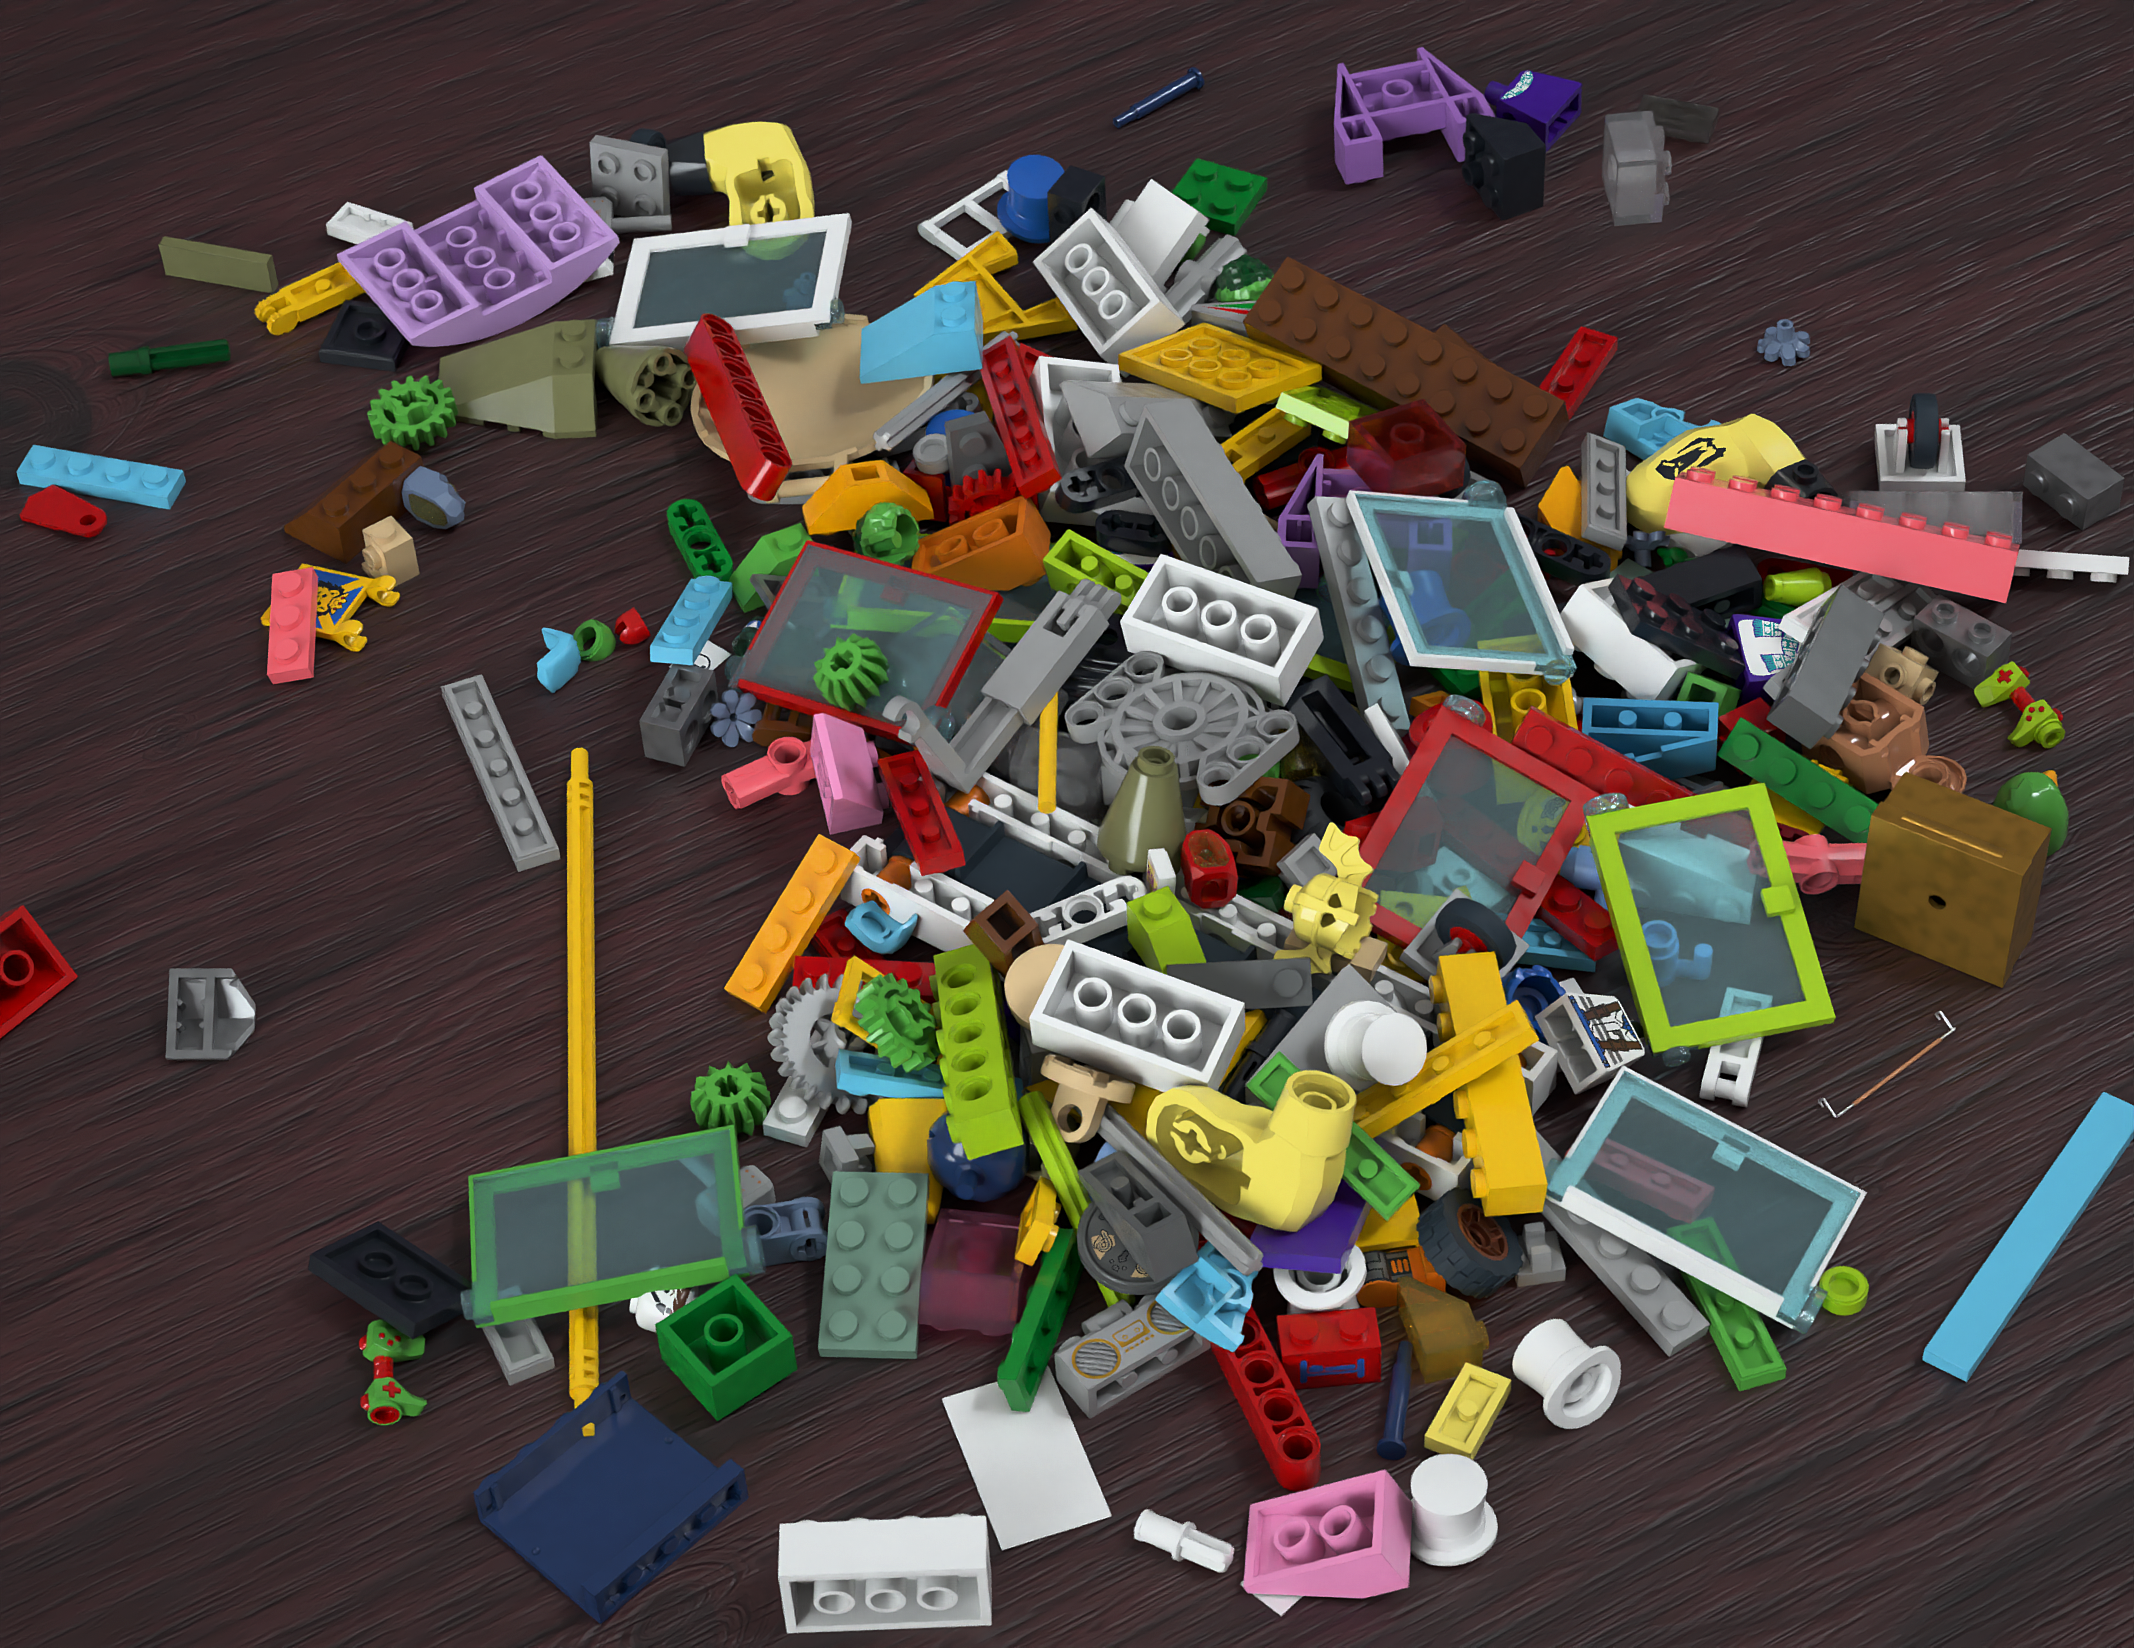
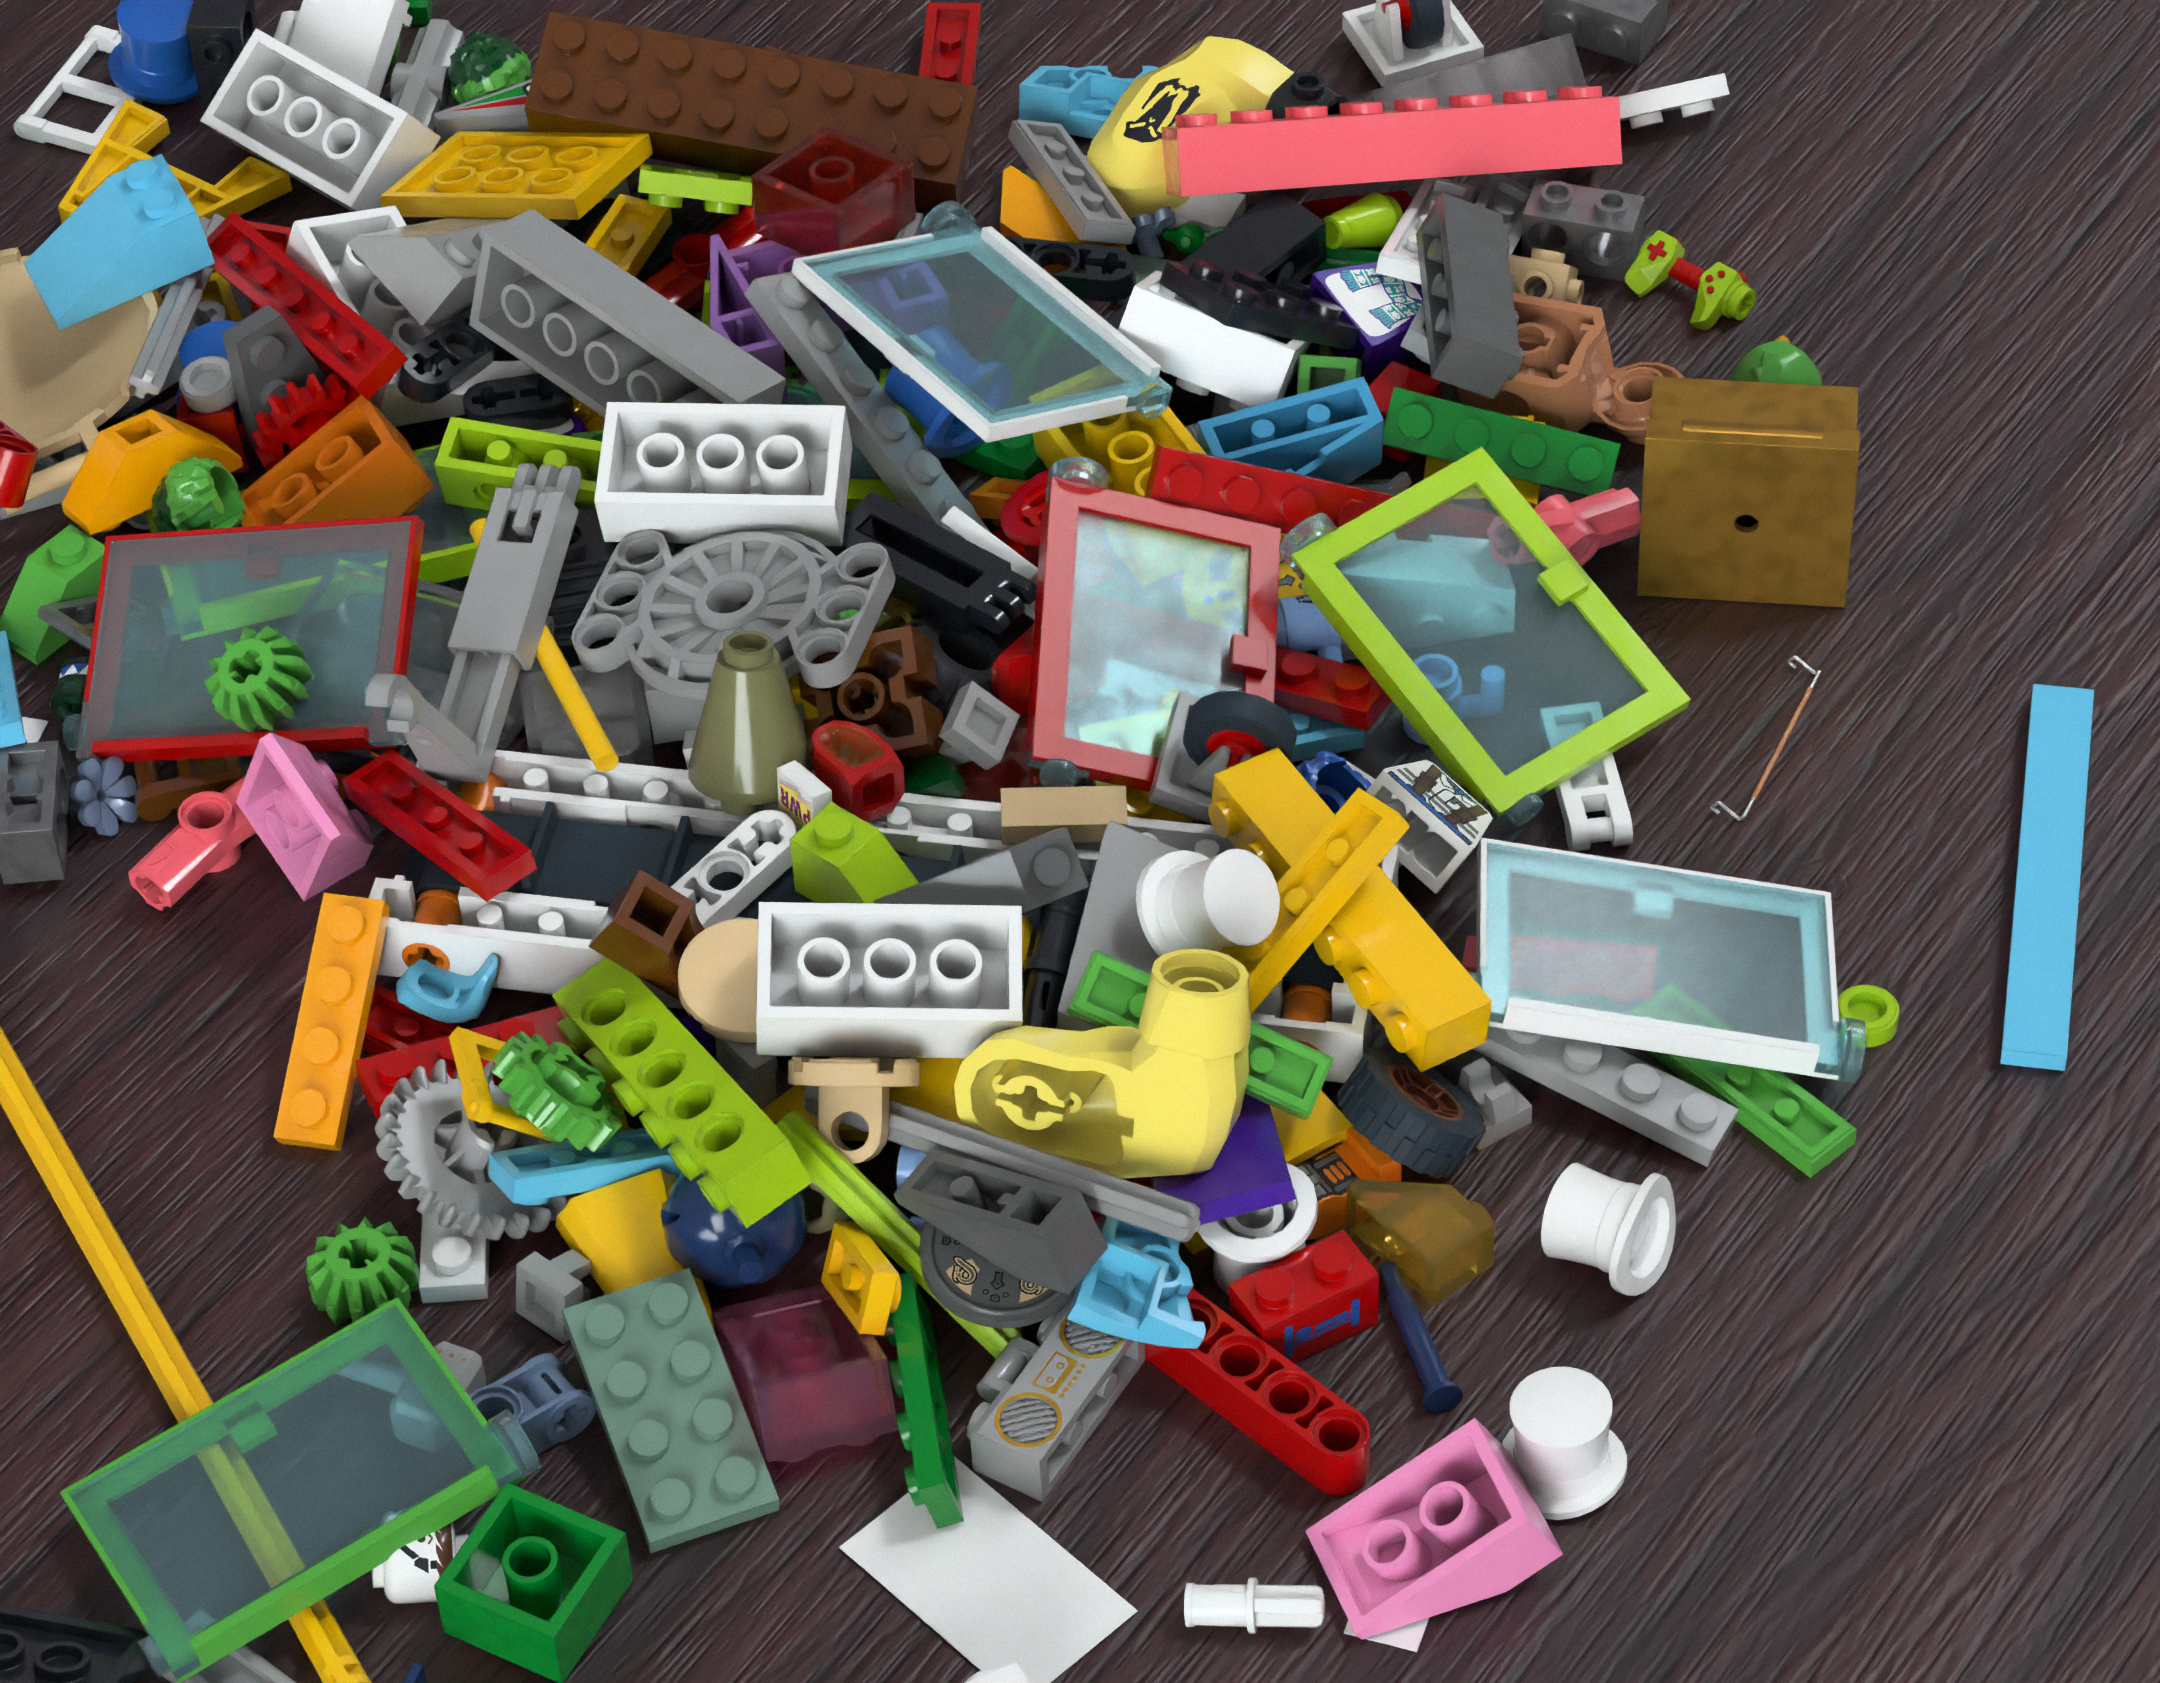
camera: 25 degrees left, 0 degrees up
(1330, 909) = (1050, 762): light yellow helmet -> none
(1468, 1412) = (1512, 1318): light yellow plate -> none

